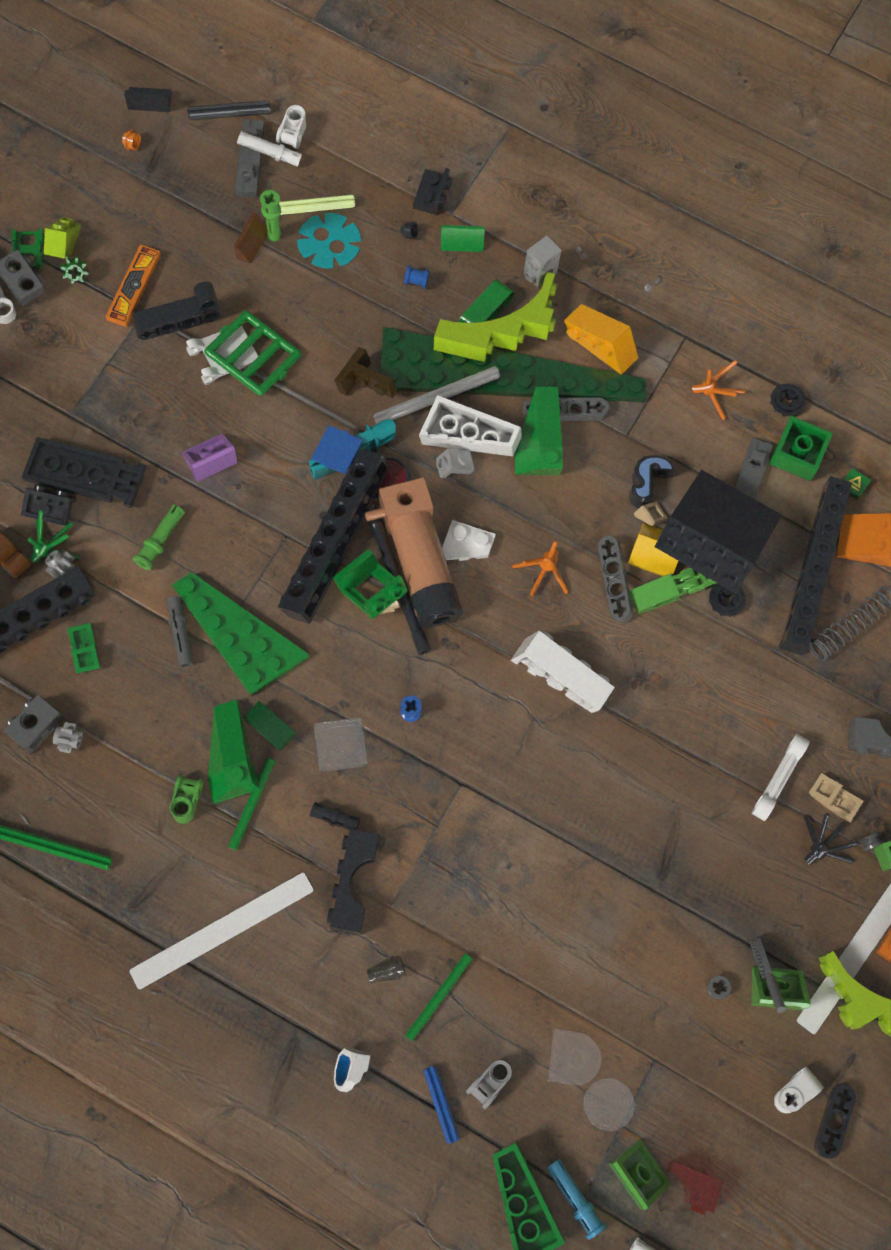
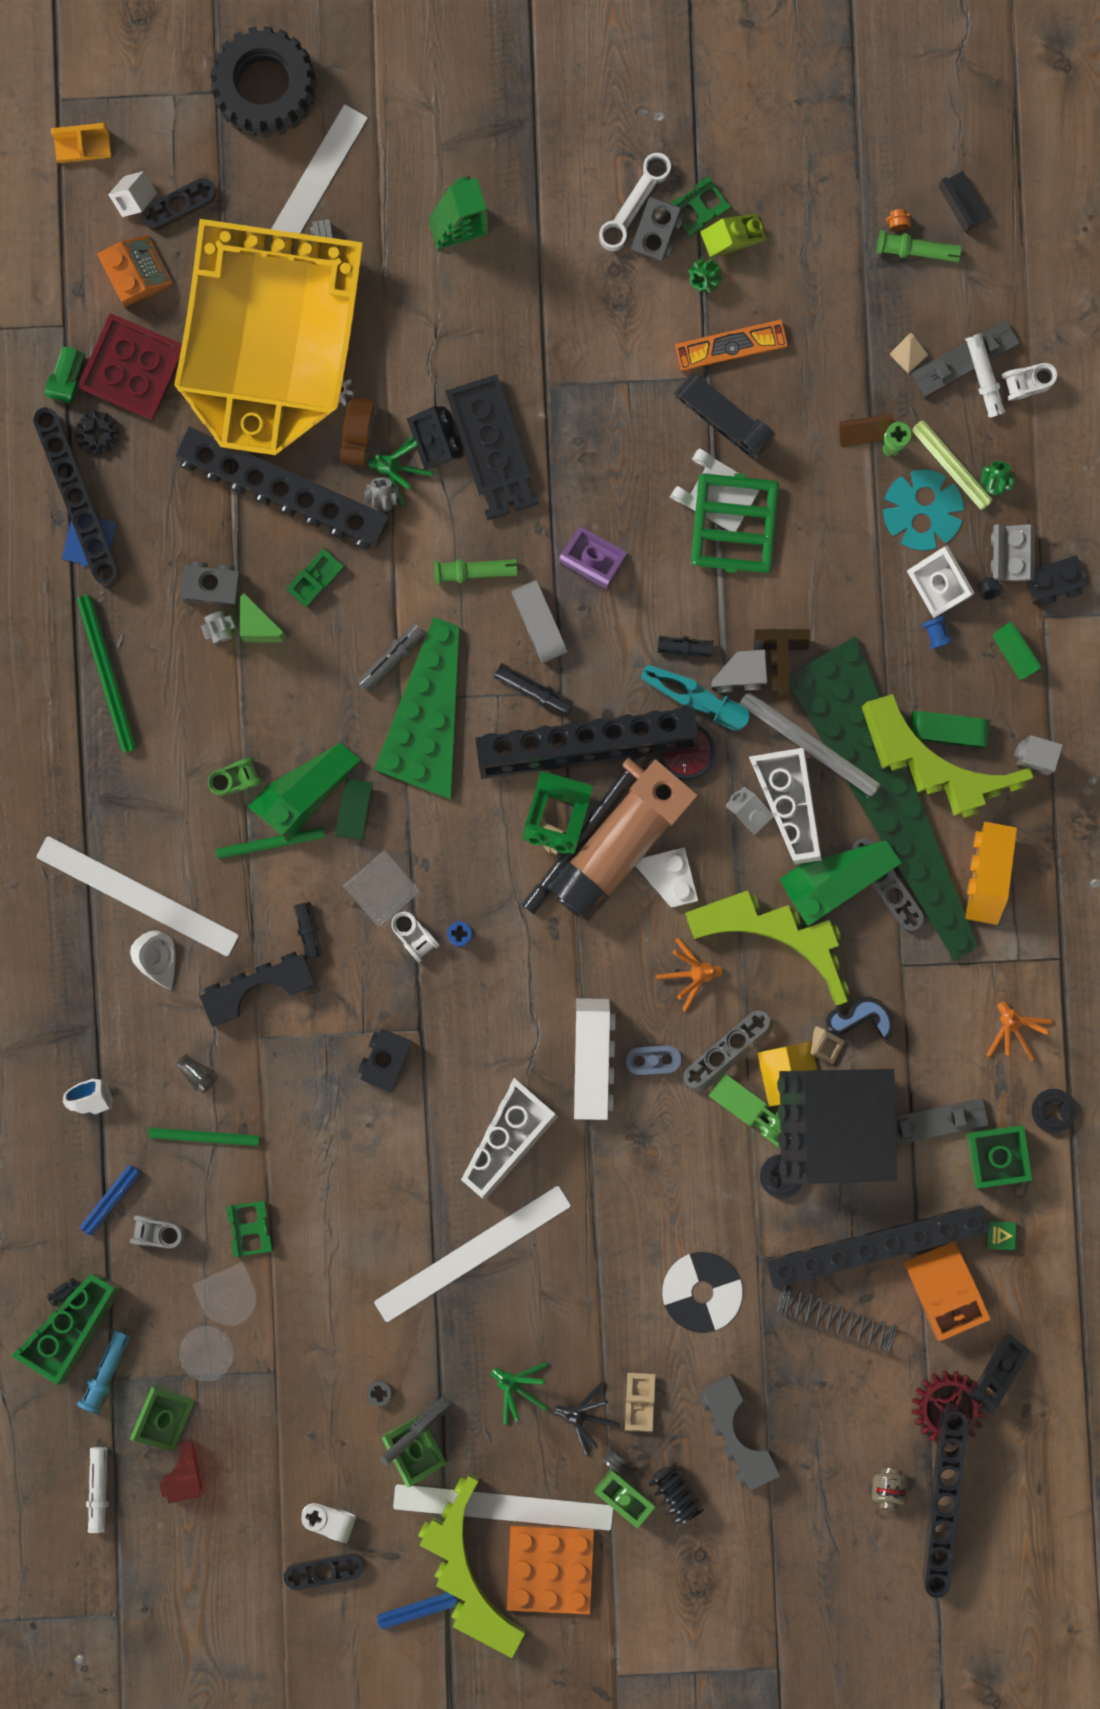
camera: 65 degrees right, 15 degrees up
(86, 704) = (256, 625): none -> bright green slope
(150, 145) = (905, 245): none -> bright green pin
(220, 186) = (909, 353): none -> tan slope
(227, 516) = (539, 621): none -> light grey beam
(229, 109) = (1009, 296): black axle -> none
(276, 548) = (531, 688): none -> black pin
(278, 944) = (155, 958): none -> white piece
(313, 435) = (685, 646): none -> black pin
(337, 449) = (677, 684): blue piece -> none
(341, 181) = (998, 478): none -> green gear
(357, 406) = (743, 670): none -> light grey slope
(384, 252) = (940, 582): none -> white slope
(391, 742) = (415, 937): none -> white piece
(398, 201) = (1013, 553): none -> light grey bracket
(467, 806) = (398, 1049): none -> black brick
(490, 1191) = (62, 1292): none -> black piece
(534, 999) = (258, 1227): none -> green piece
(550, 489) = (739, 915): none -> lime arch
(581, 760) = (509, 1137): none -> white wedge
(588, 633) = (653, 1060): none -> sand blue plate
(652, 853) = (472, 1254): none -> white sticker
(769, 798) = (624, 1336): white piece -> none
(769, 883) = (511, 1383): none -> green plant
(772, 724) = (725, 1285): none -> sticker

